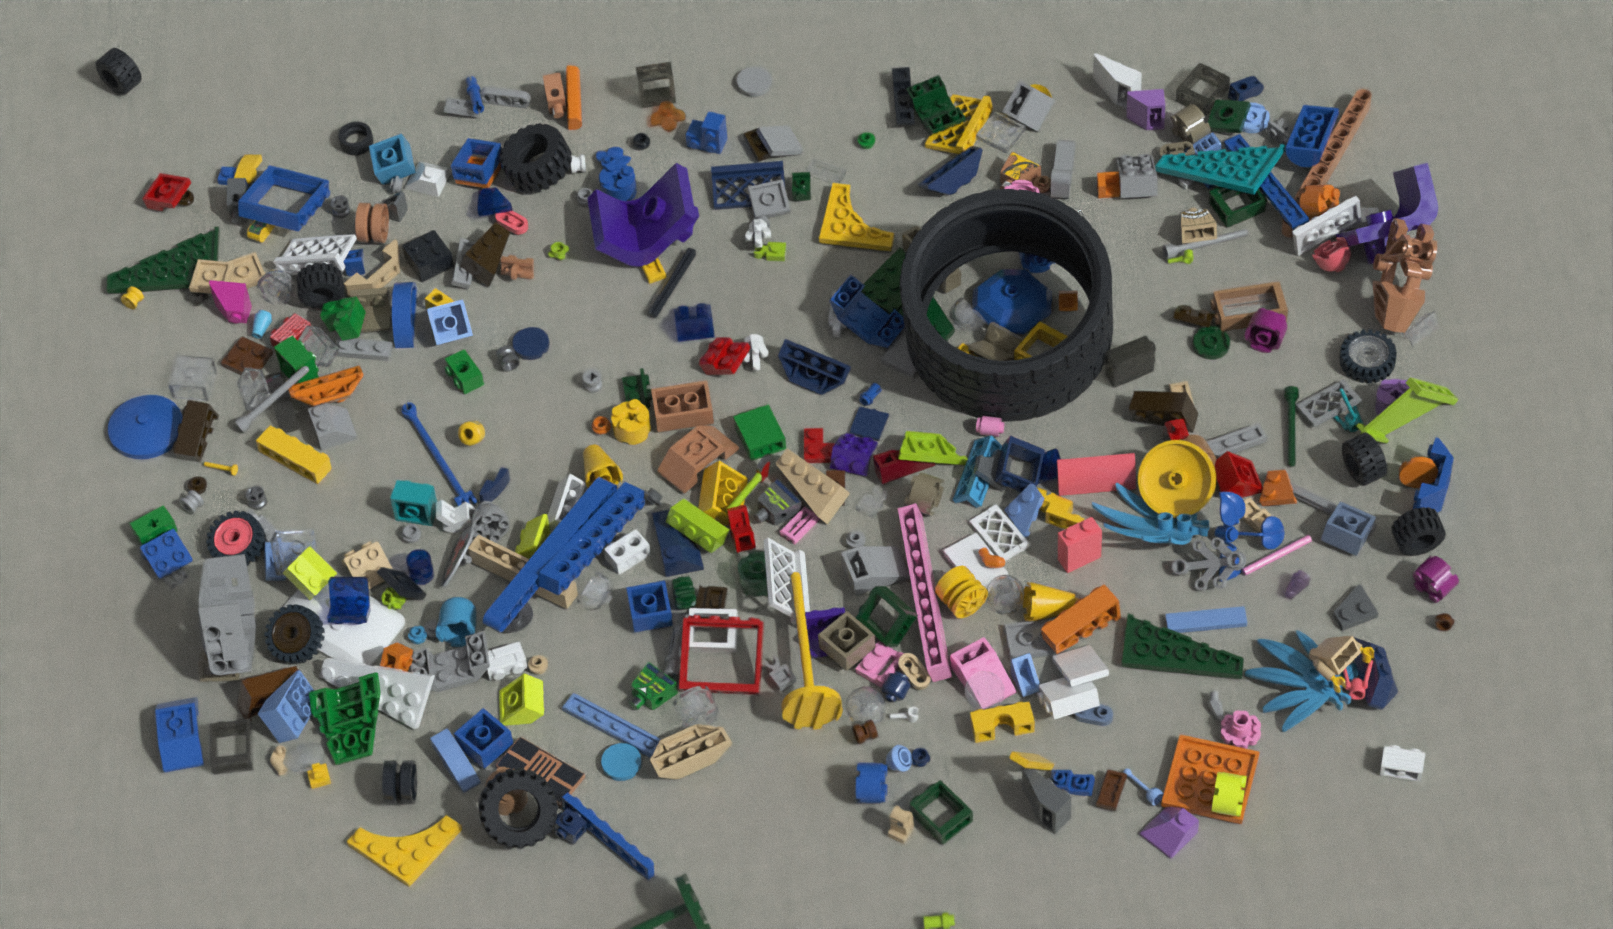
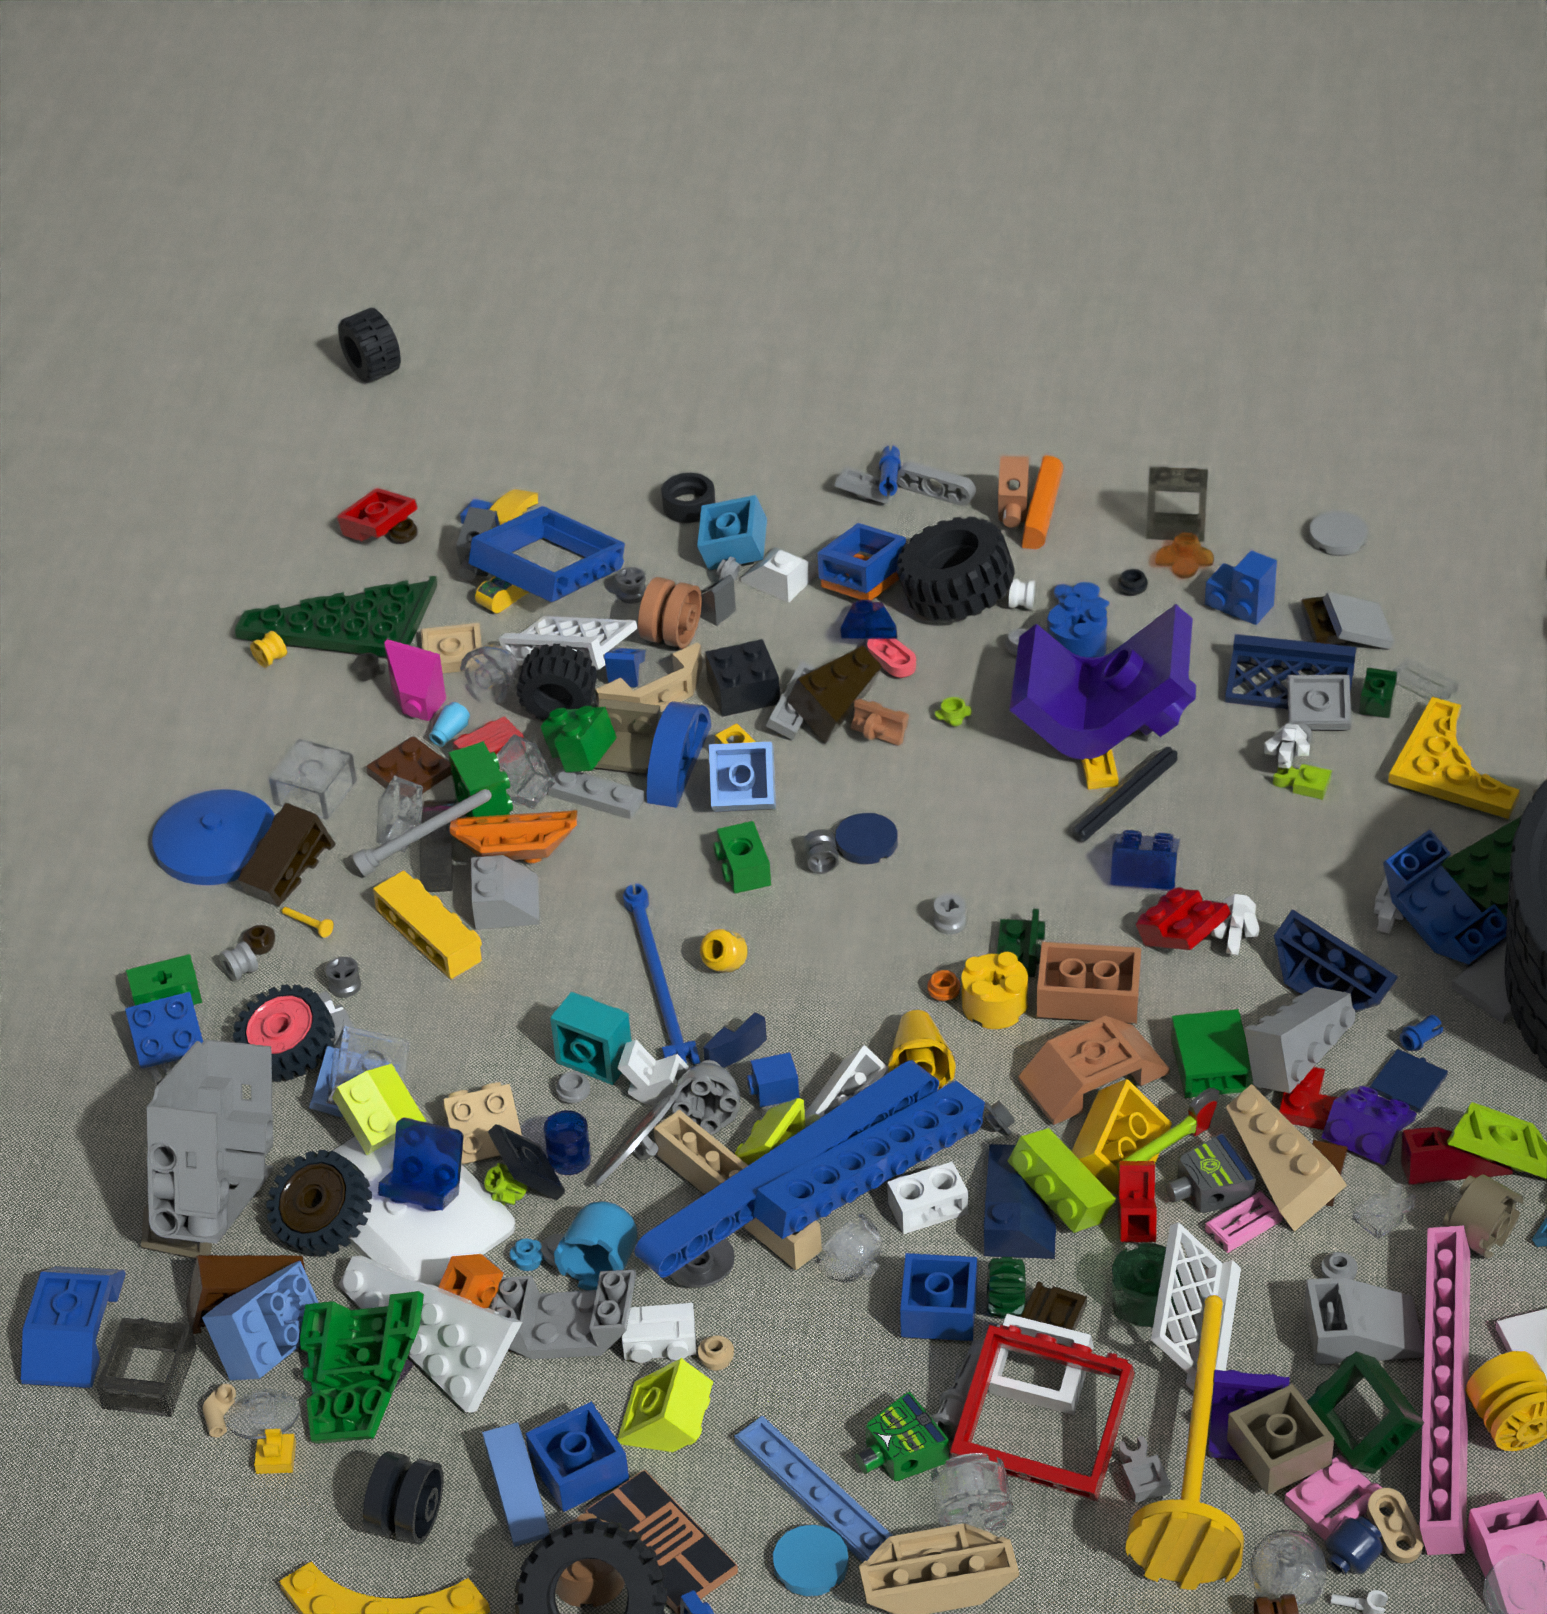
camera: 15 degrees right, 10 degrees down
(210, 270) = (398, 630): tan tile -> none
(523, 504) = (773, 1079): none -> blue brick
(805, 414) = (1297, 1037): none -> light grey wedge
(866, 140) = (1503, 648): green plate -> none

